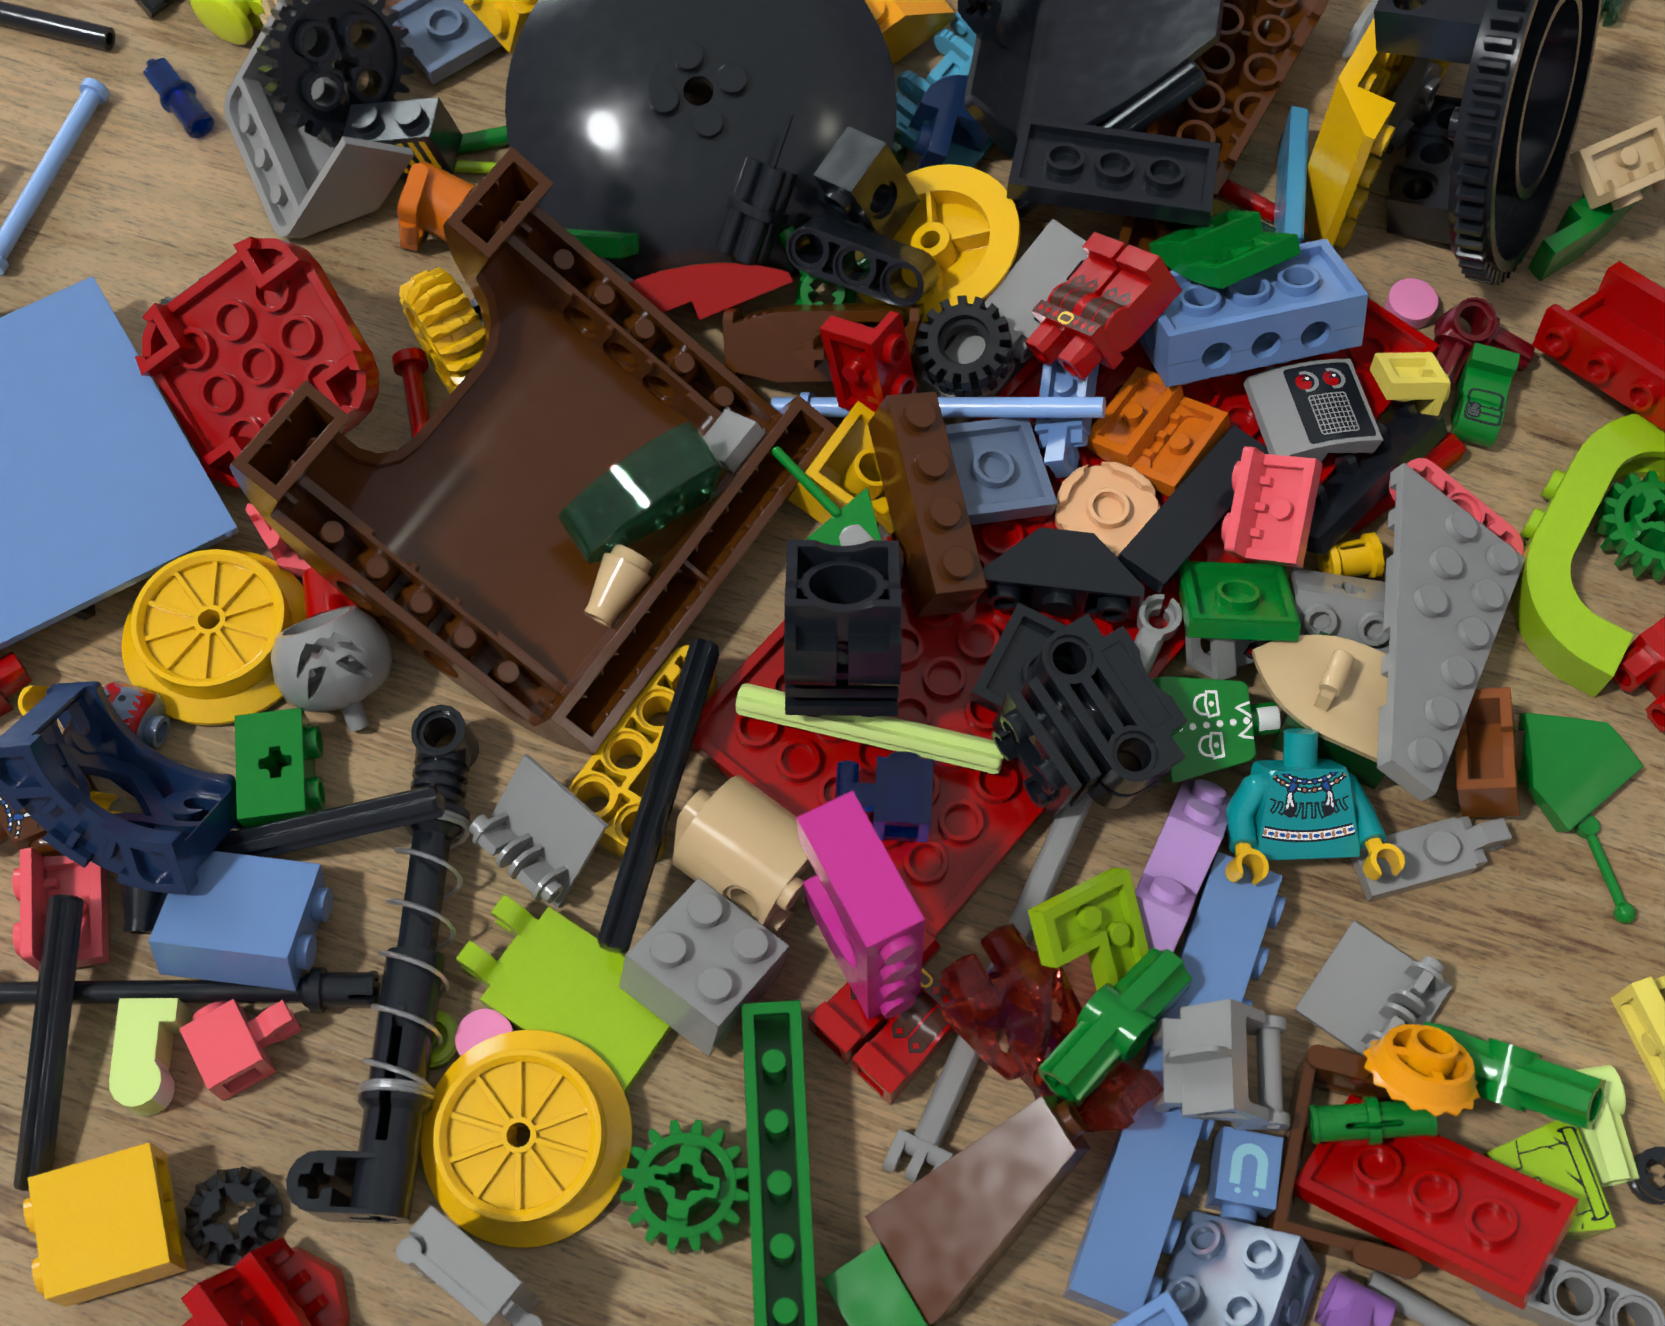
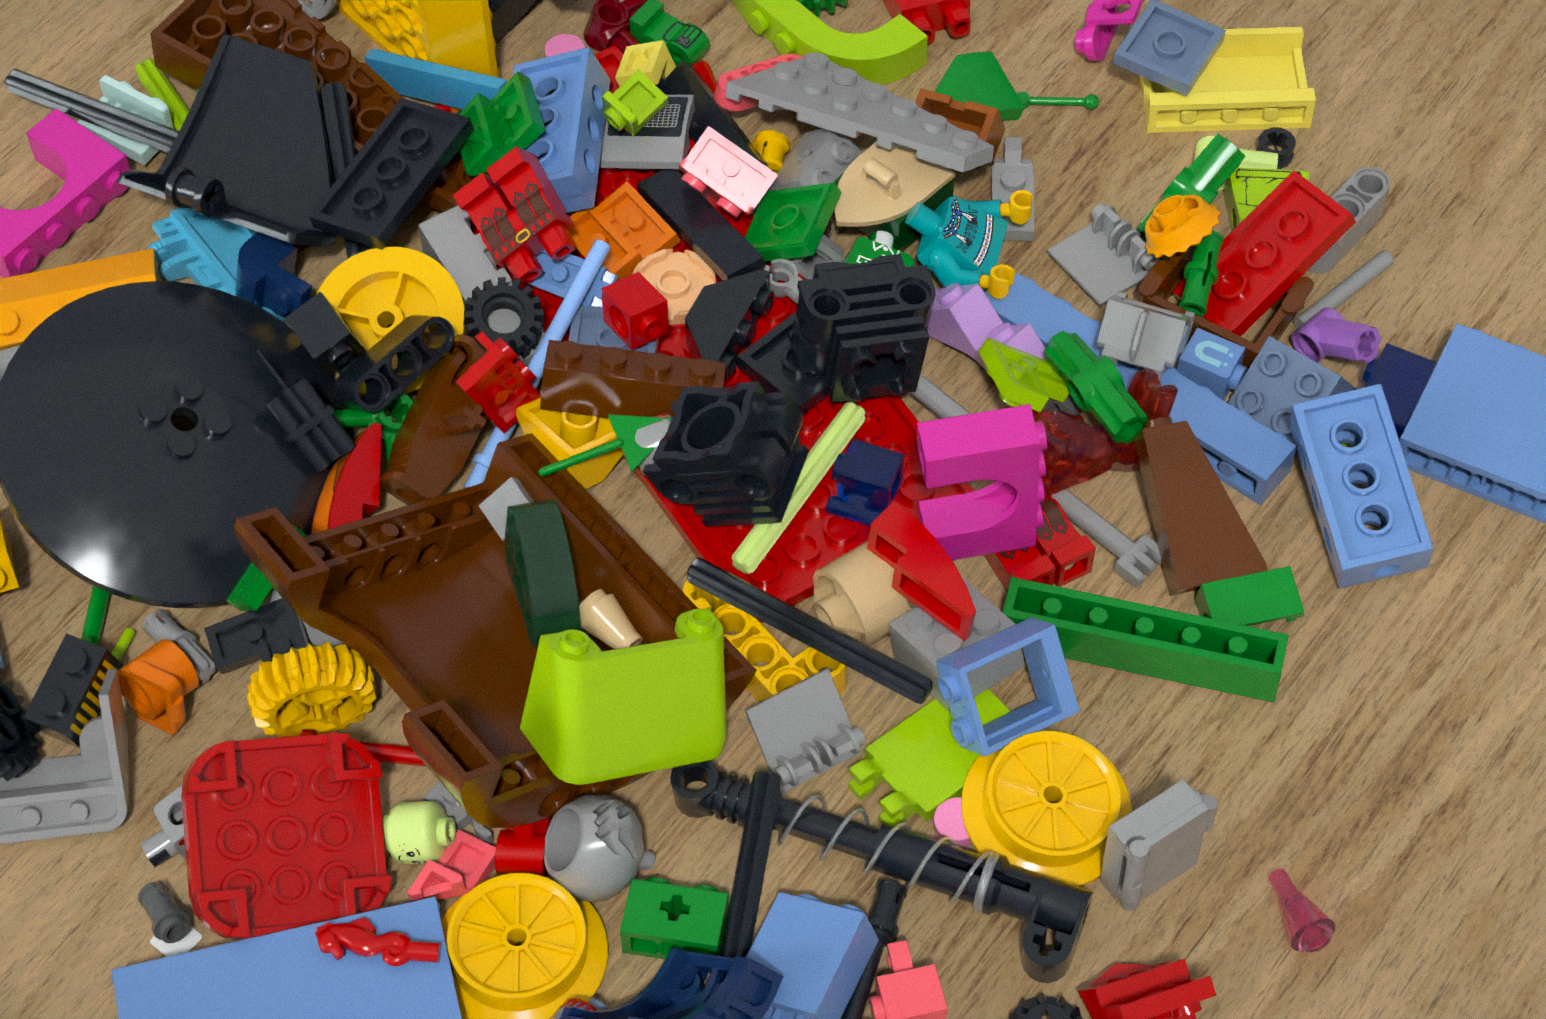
camera: 70 degrees left, 10 degrees down
(162, 472) = (362, 940): none -> red animal
(456, 633) = (630, 706): none -> lime windscreen
(614, 1067) = (1049, 678): none -> medium blue window
(658, 1181) = (1131, 720): green gear -> none
(739, 886) = (922, 569): none -> red slope
(1024, 470) = (635, 310): none -> red brick
(1323, 374) = (633, 103): none -> lime bracket

